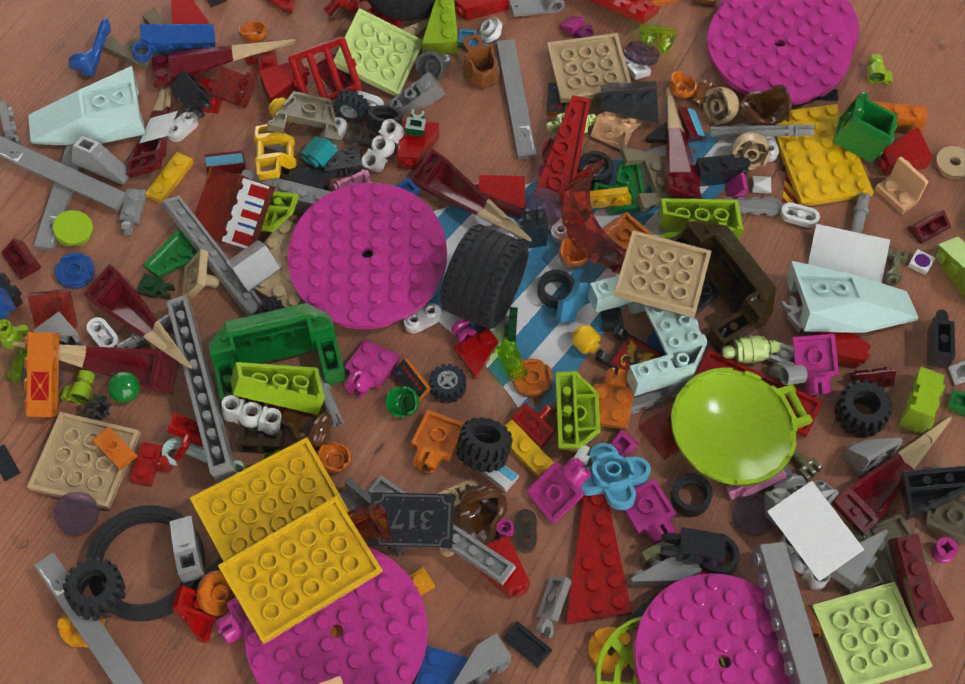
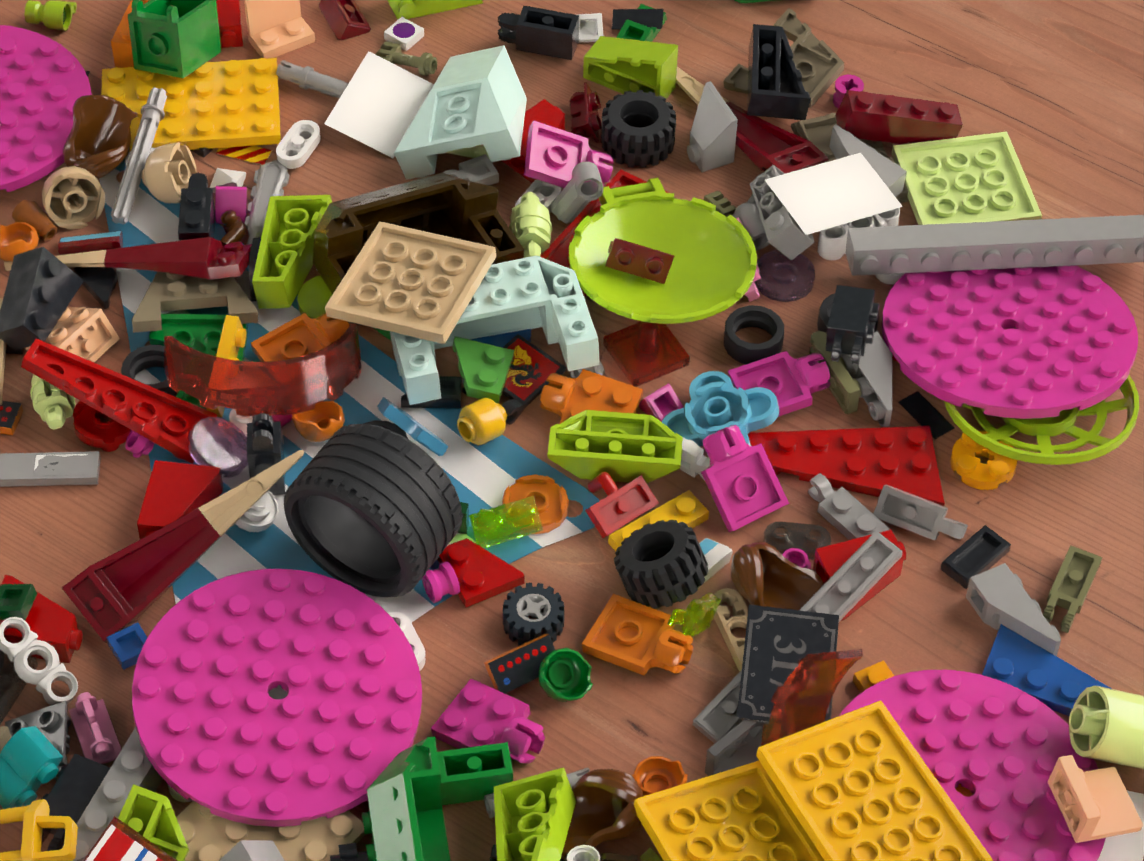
camera: 85 degrees left, 10 degrees down
(452, 471) = (697, 615): none -> clear neon green plate
(549, 561) = (844, 510): none -> light grey plate
(626, 334) = (482, 367): none -> bright green wing
(717, 193) = (233, 227): none -> reddish brown arm
(731, 404) = (639, 260): none -> dark red hinge

